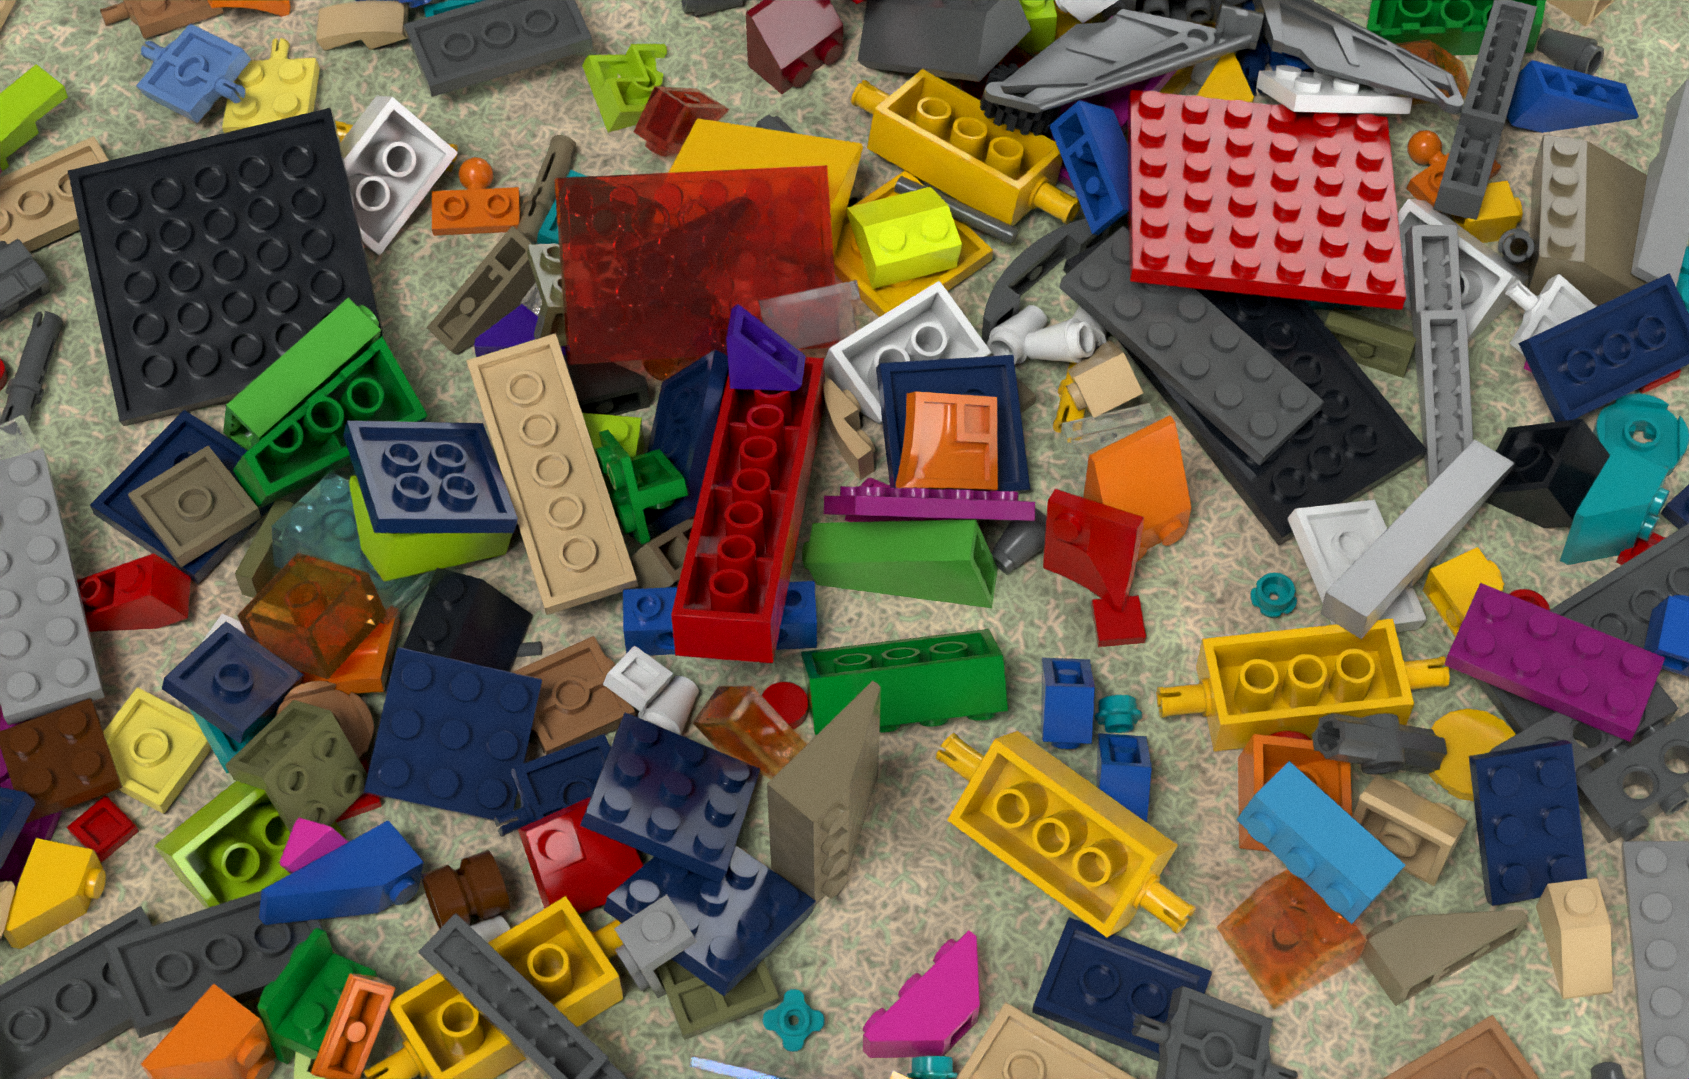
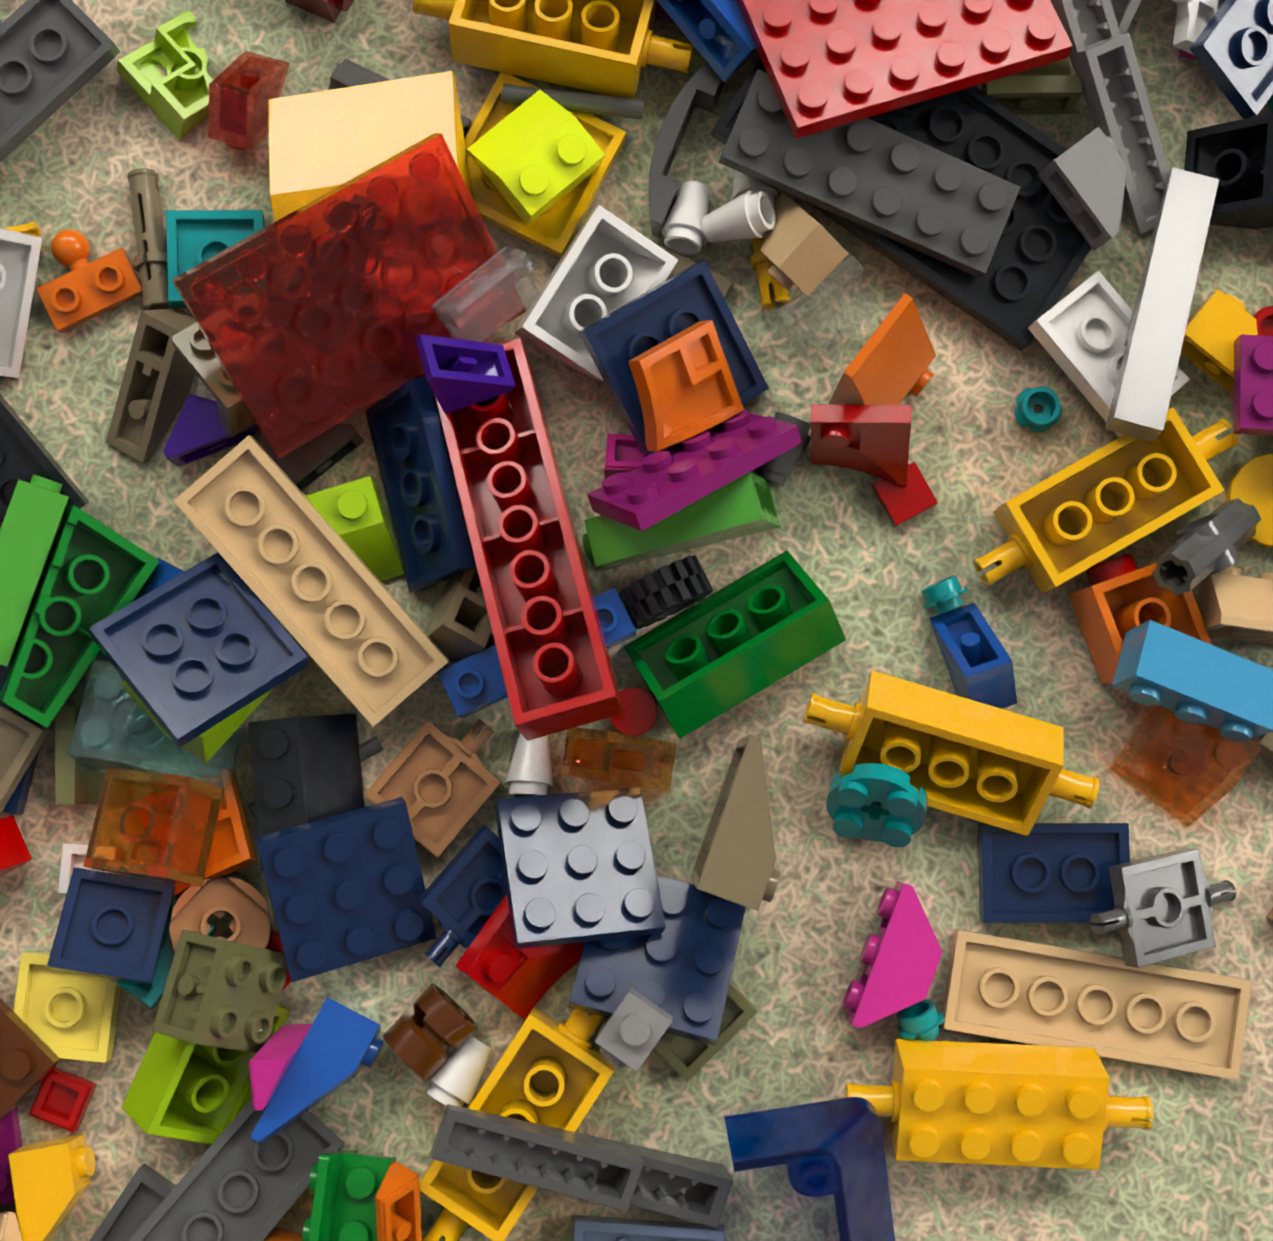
camera: 20 degrees left, 25 degrees up
(638, 483) = (405, 557): green bracket -> none
(638, 678) = (492, 756): white plate -> none
(808, 1020) = (768, 1012): teal plate -> none
(845, 427) = (560, 385): tan slope -> none
(858, 607) = (665, 591): none -> black tyre
(955, 872) = (855, 815): none -> teal plate
(1067, 702) = (893, 601): blue slope -> none
(1386, 417) = (1090, 186): none -> light grey slope

